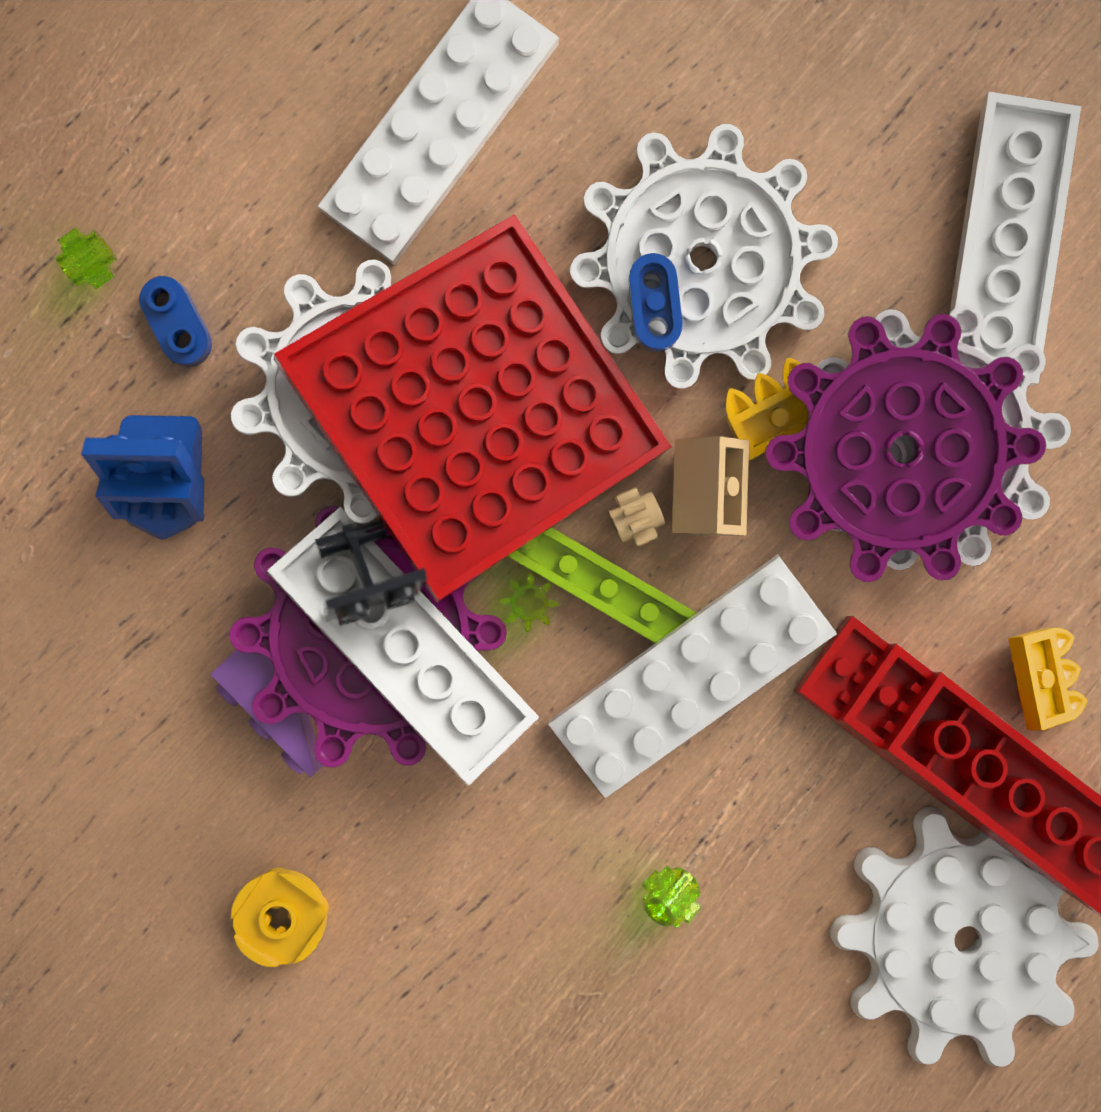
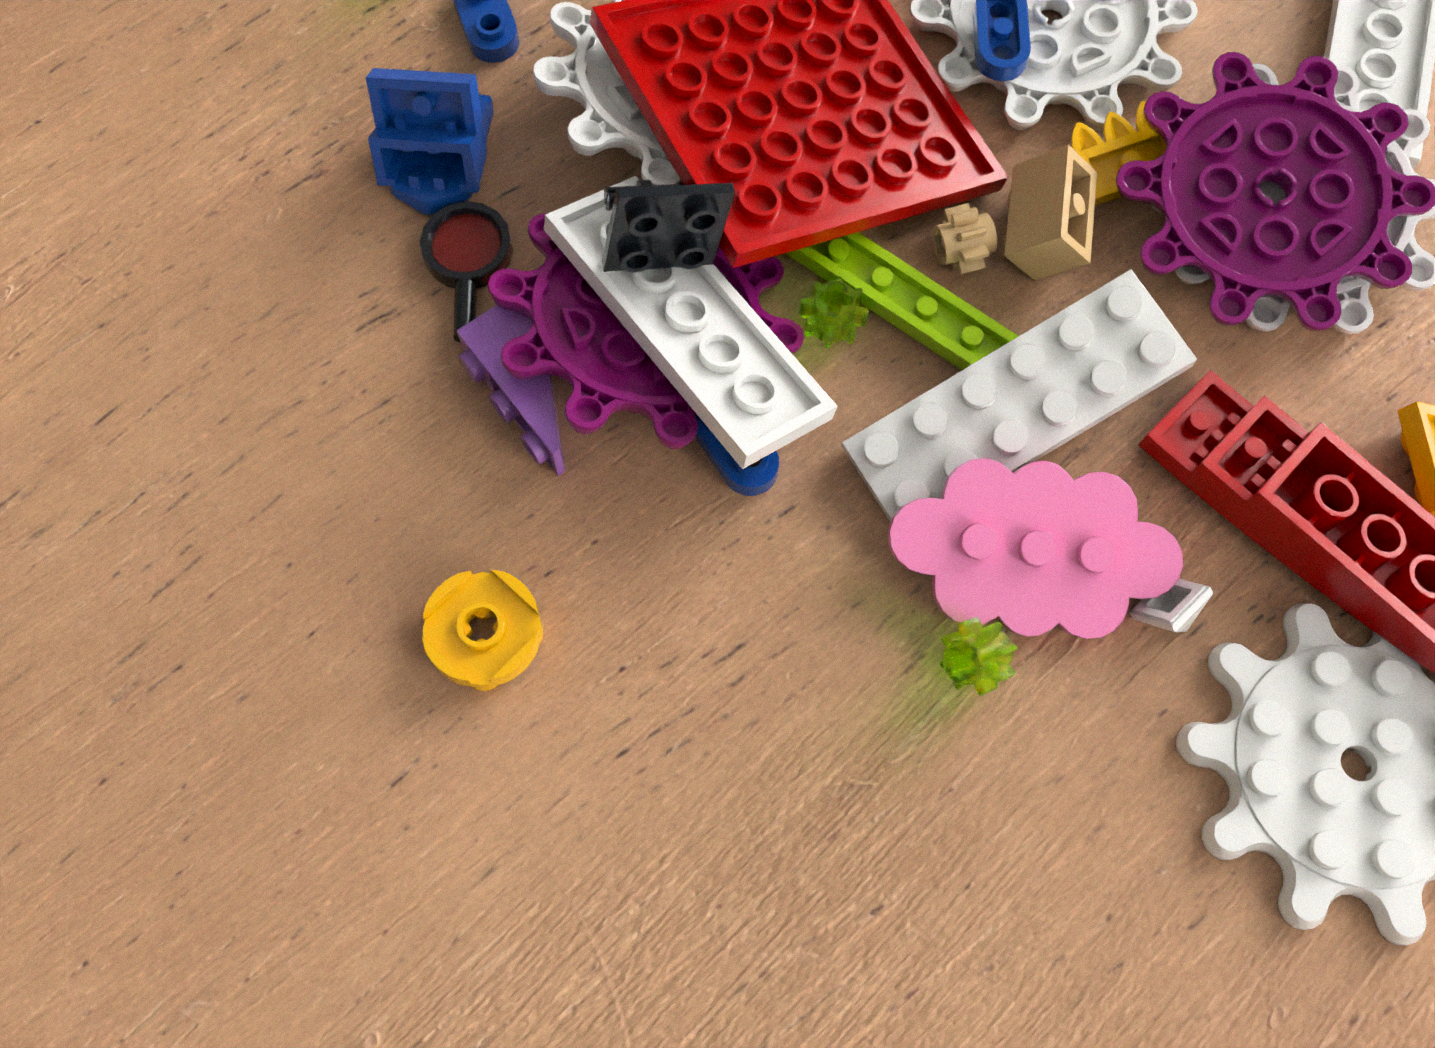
camera: 10 degrees right, 20 degrees down
(204, 571) = (463, 250): none -> piece
(710, 802) = (1035, 548): none -> bright pink plate
(822, 829) = (1175, 608): none -> white slope

